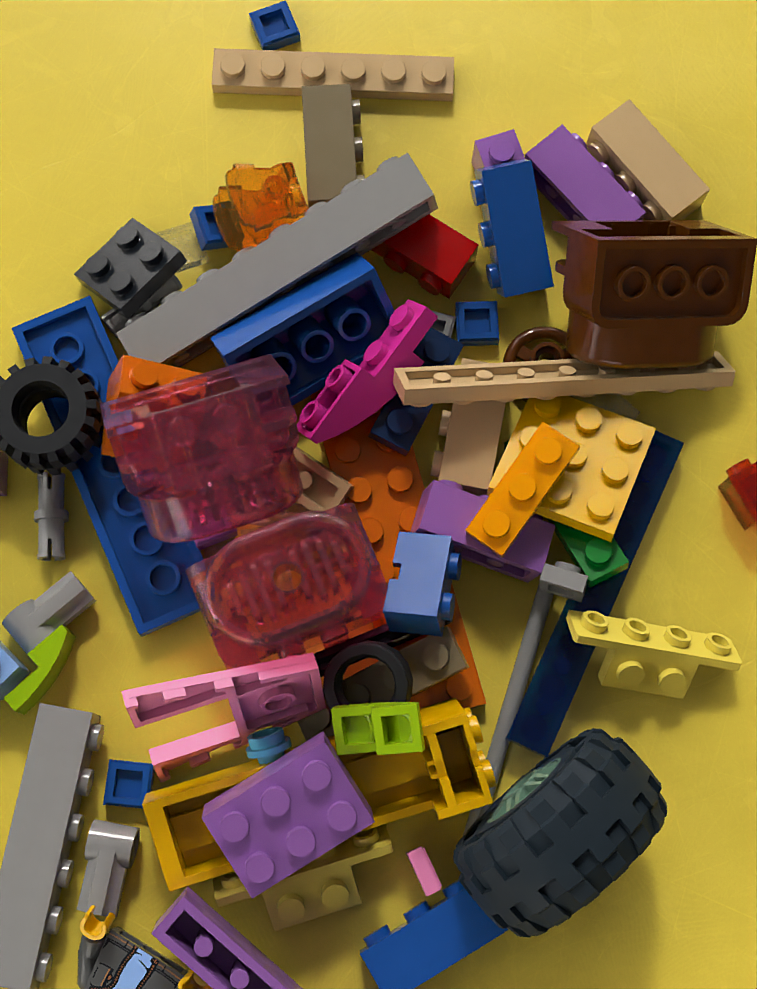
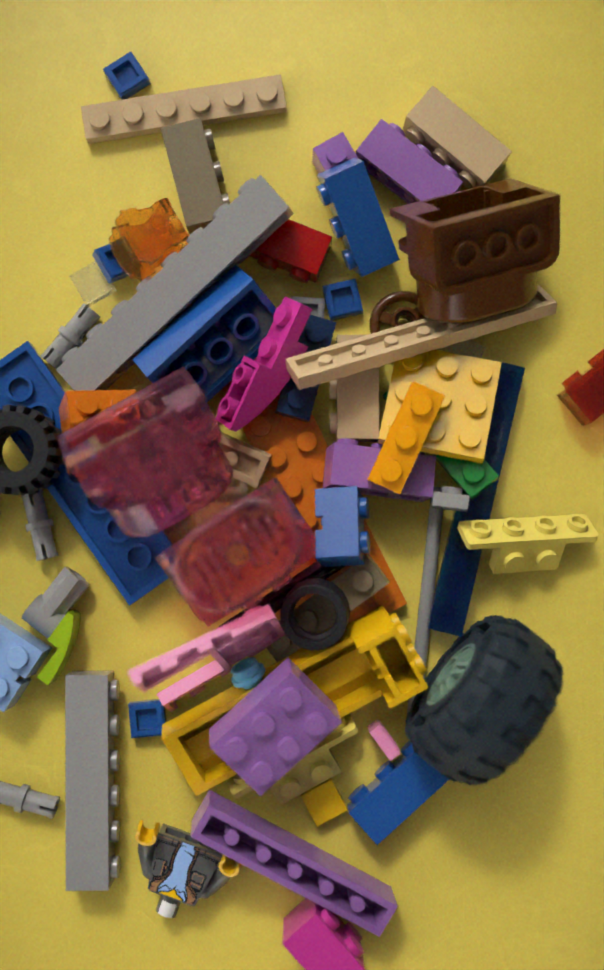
camera: 10 degrees left, 10 degrees up
(109, 854) = (145, 774): light grey piece -> none
(130, 267) = (55, 310): black plate -> none
(330, 939) = (324, 802): none -> yellow tile
(378, 728) = (328, 649): lime slope -> none

